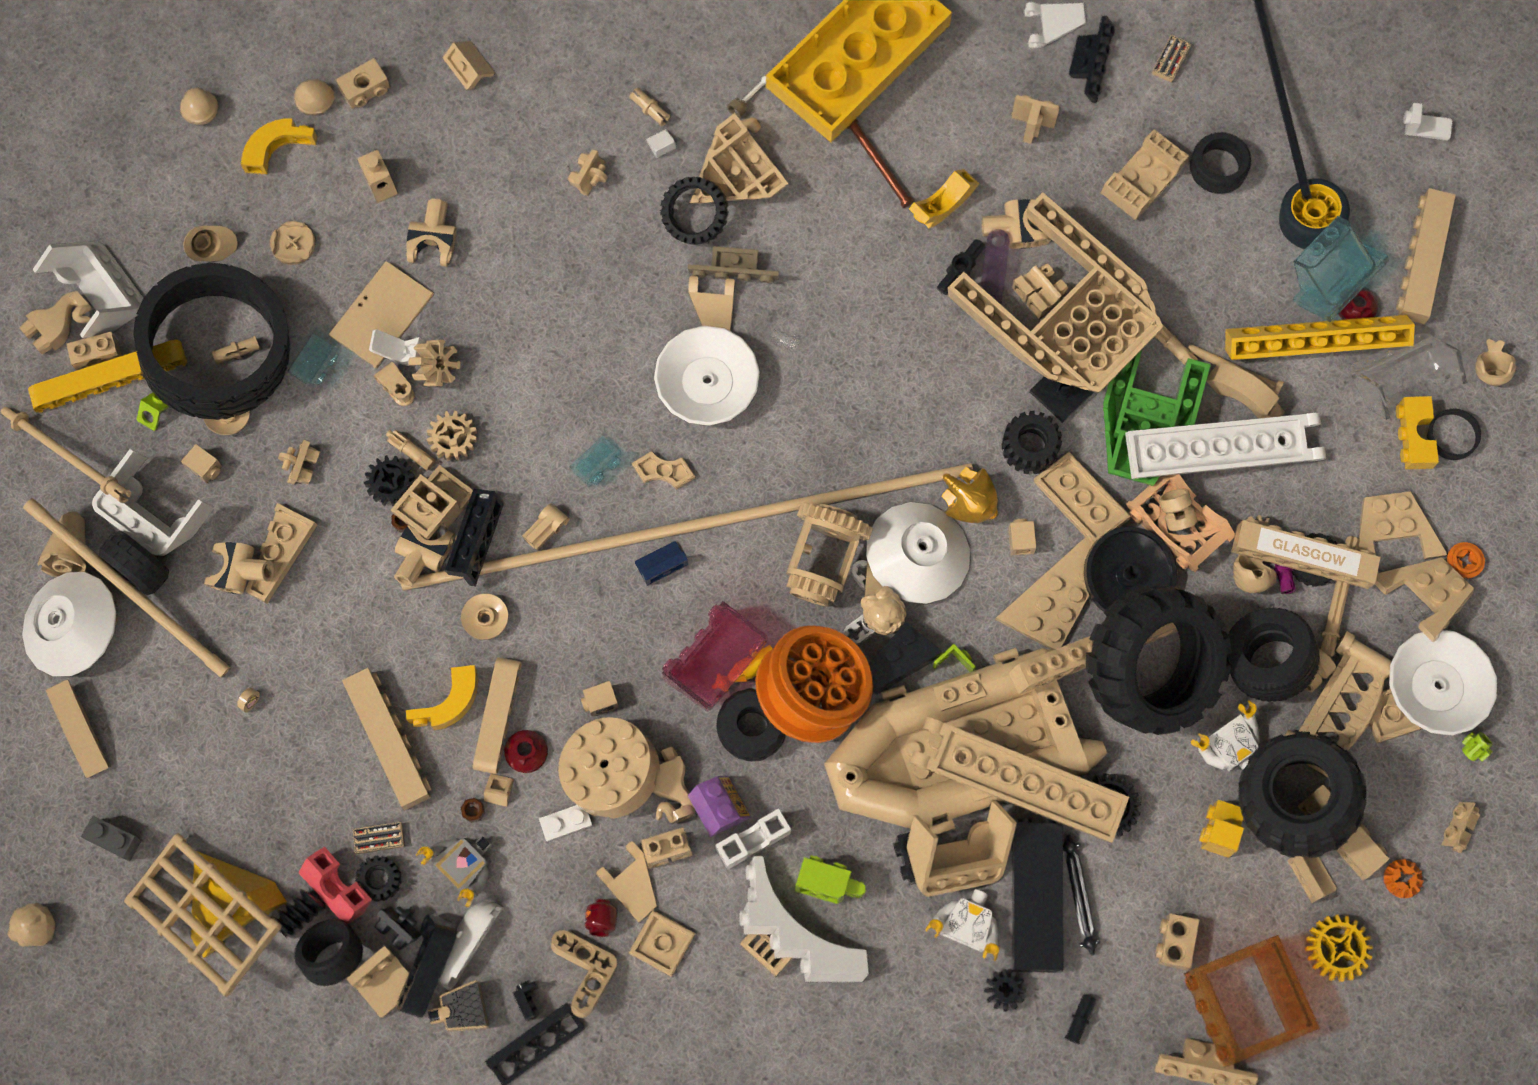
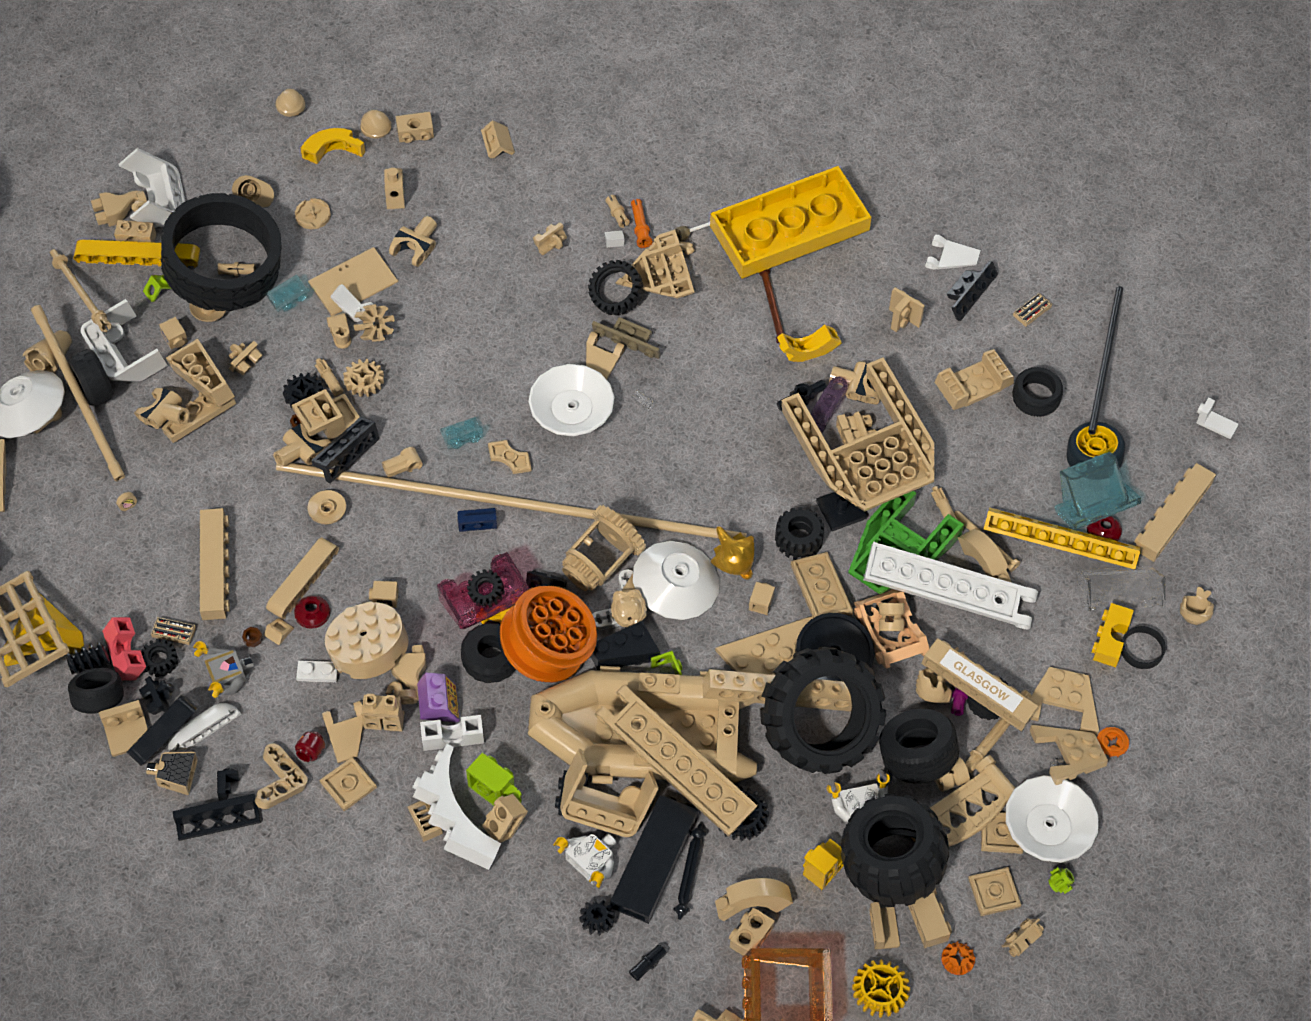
camera: 20 degrees right, 15 degrees down
(256, 501) = (198, 369): none -> tan wedge
(455, 705) = (273, 560): yellow arch -> none
(689, 120) = (642, 229): none -> orange pin
(701, 652) = (477, 581): none -> black tyre
(785, 611) = (537, 579): none -> black hinge
(857, 920) = (504, 818): none -> tan brick
(1162, 900) = (753, 893): none -> tan arch
(1410, 786) = (994, 891): none -> tan tile

